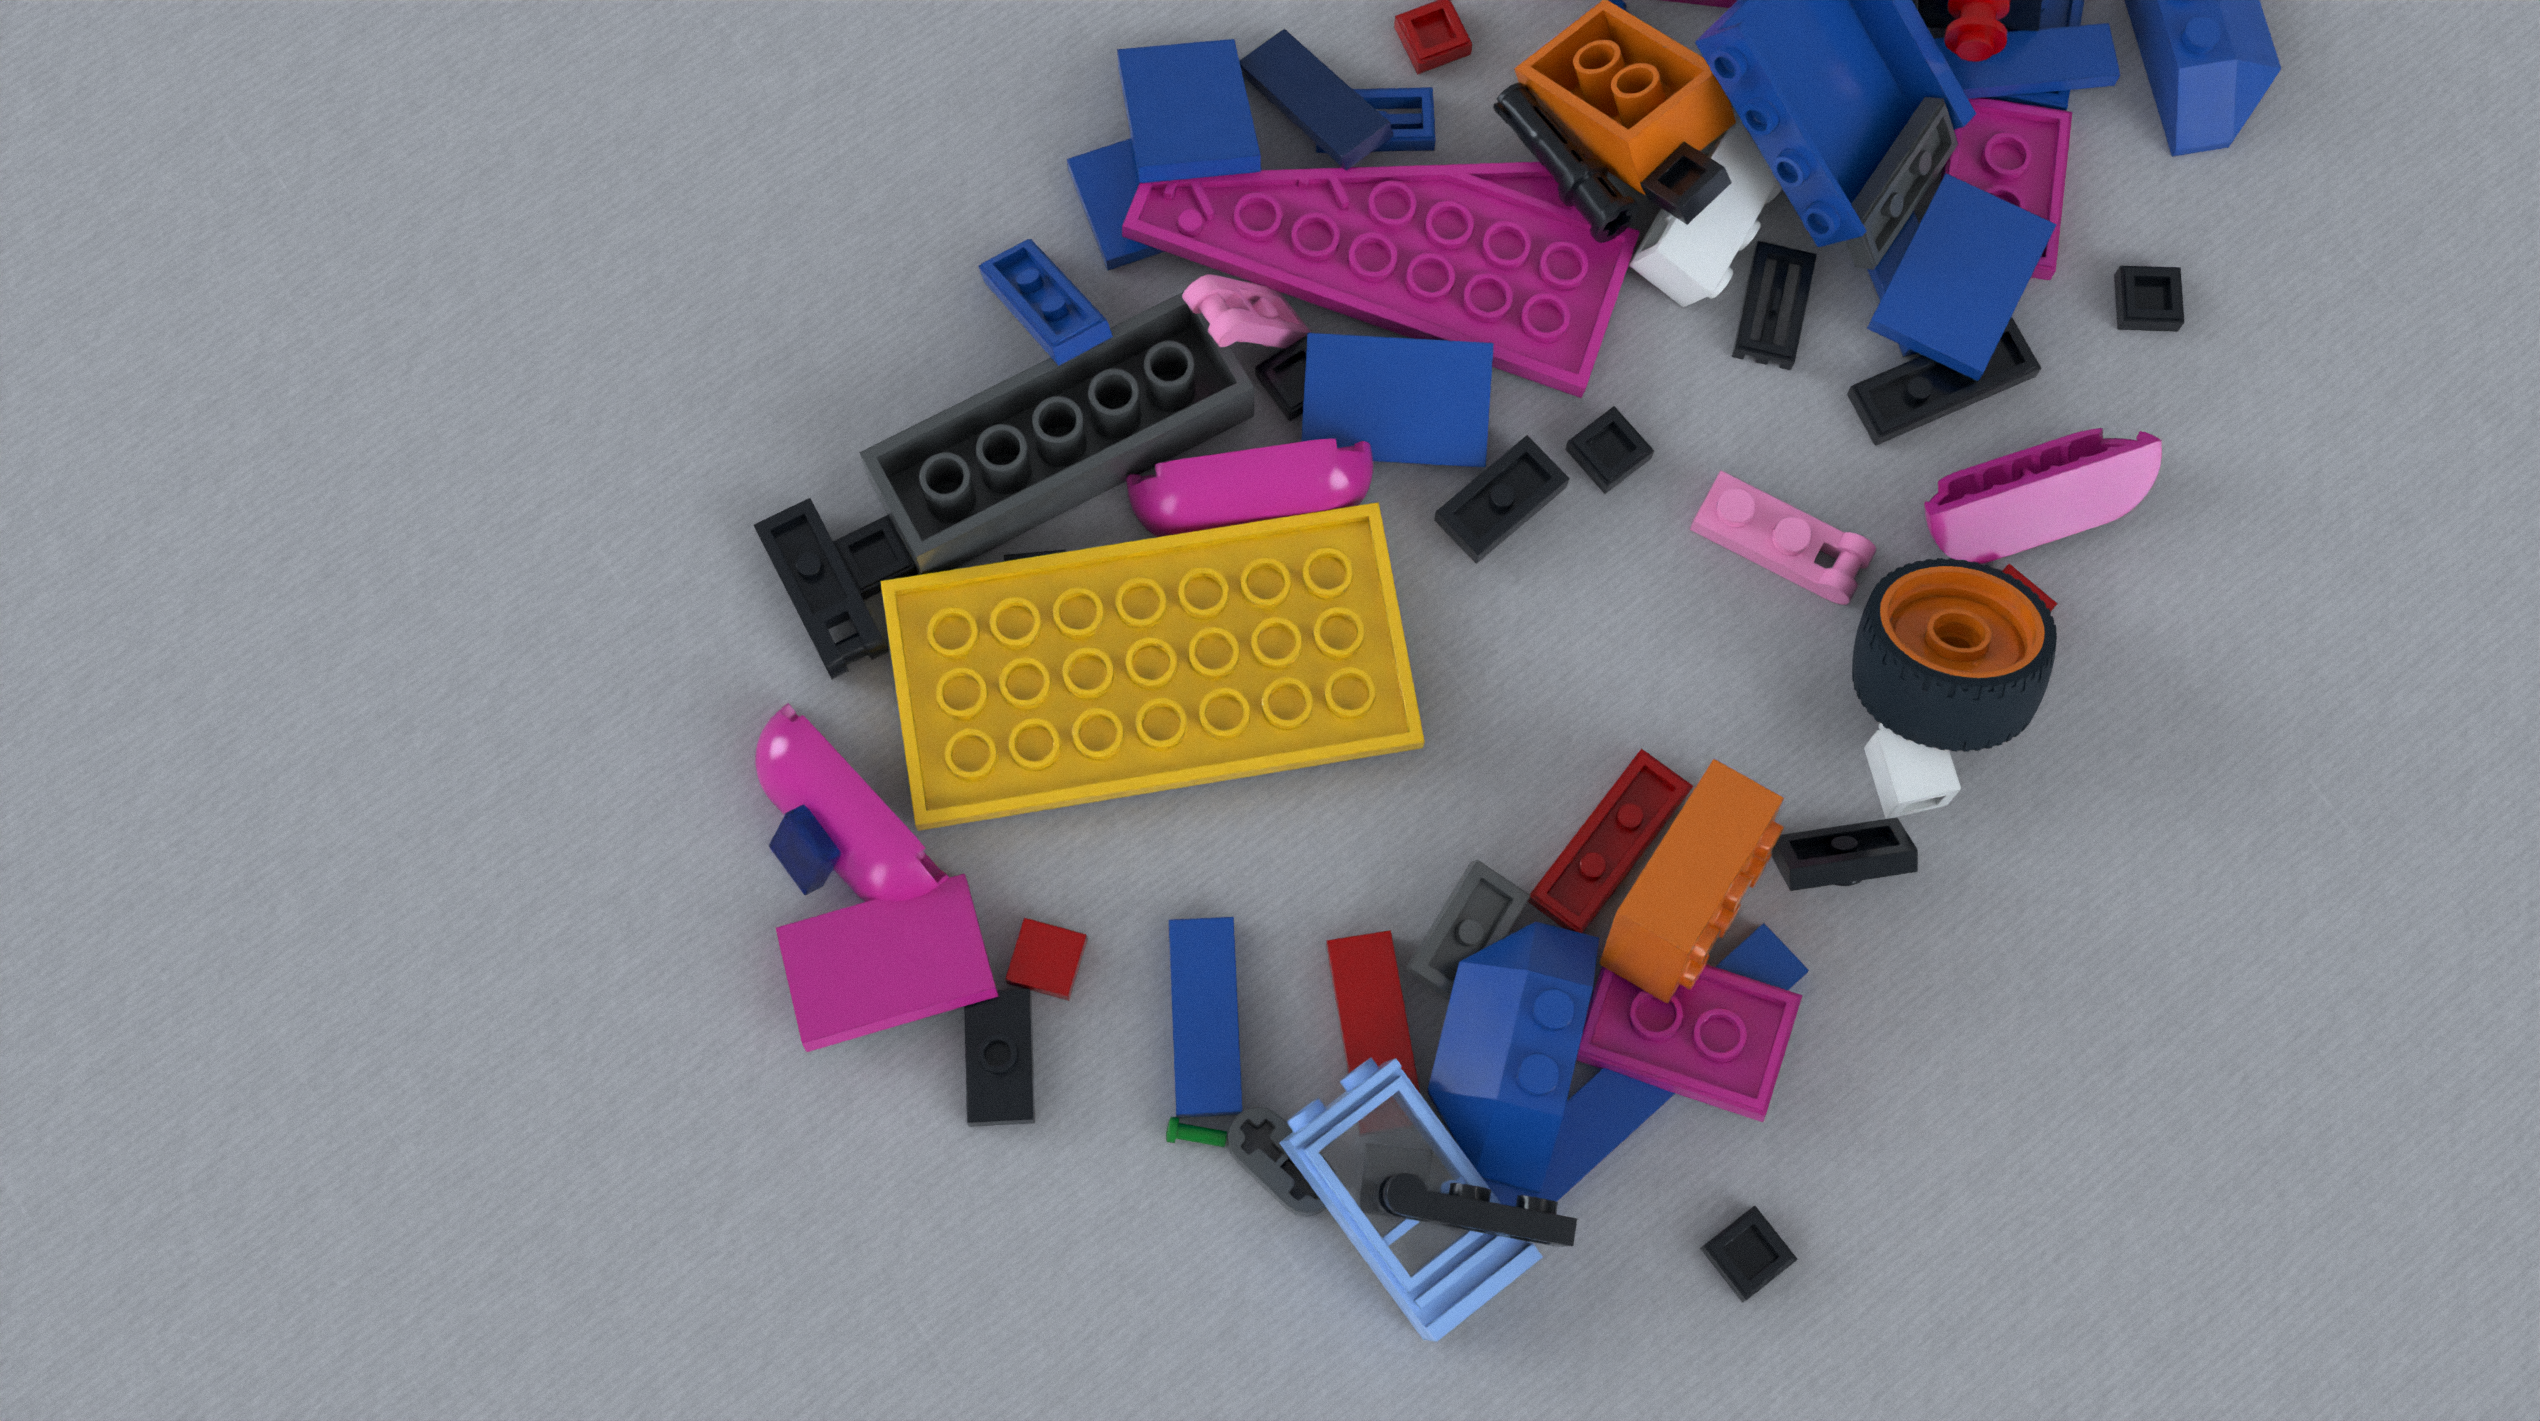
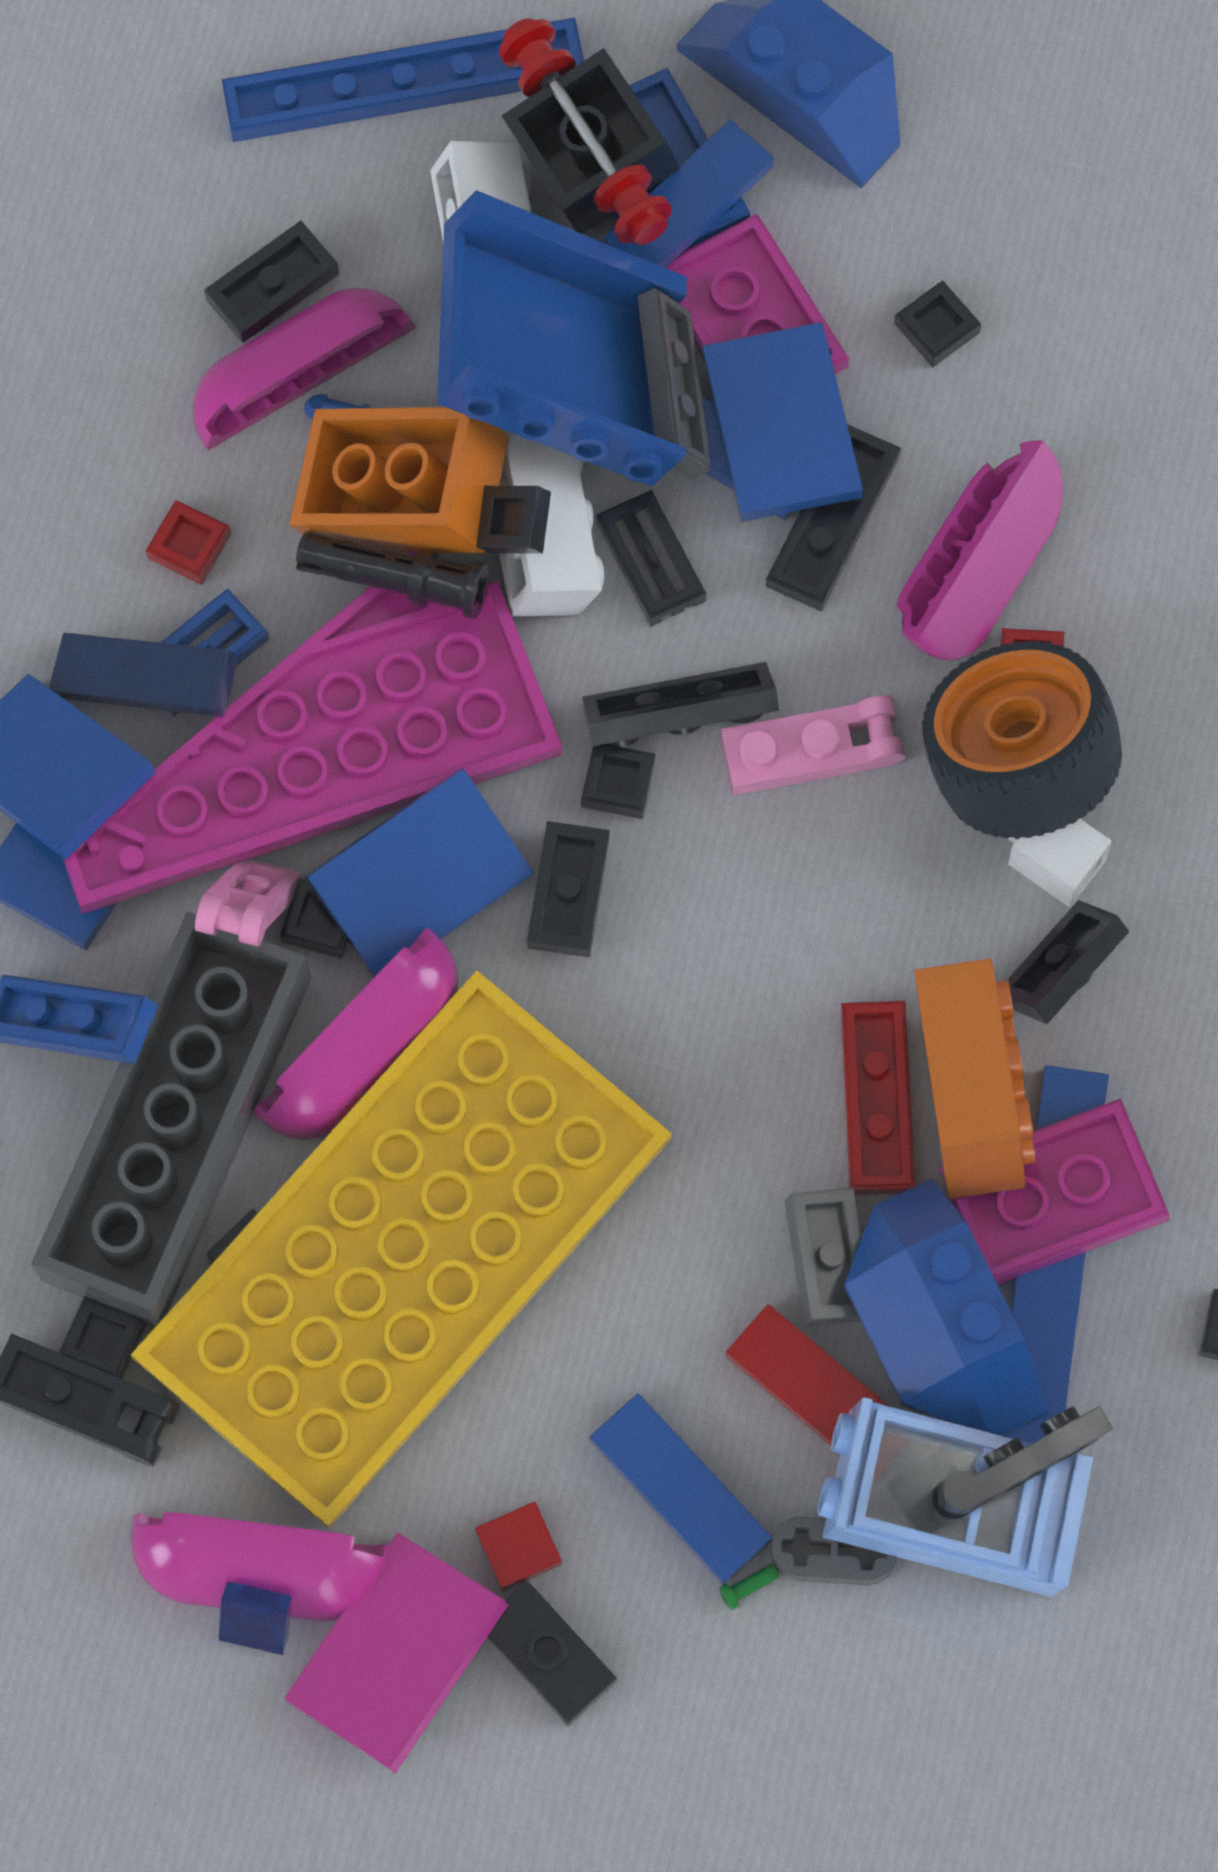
camera: 35 degrees left, 0 degrees up
(1703, 428) = (680, 704): none -> black plate

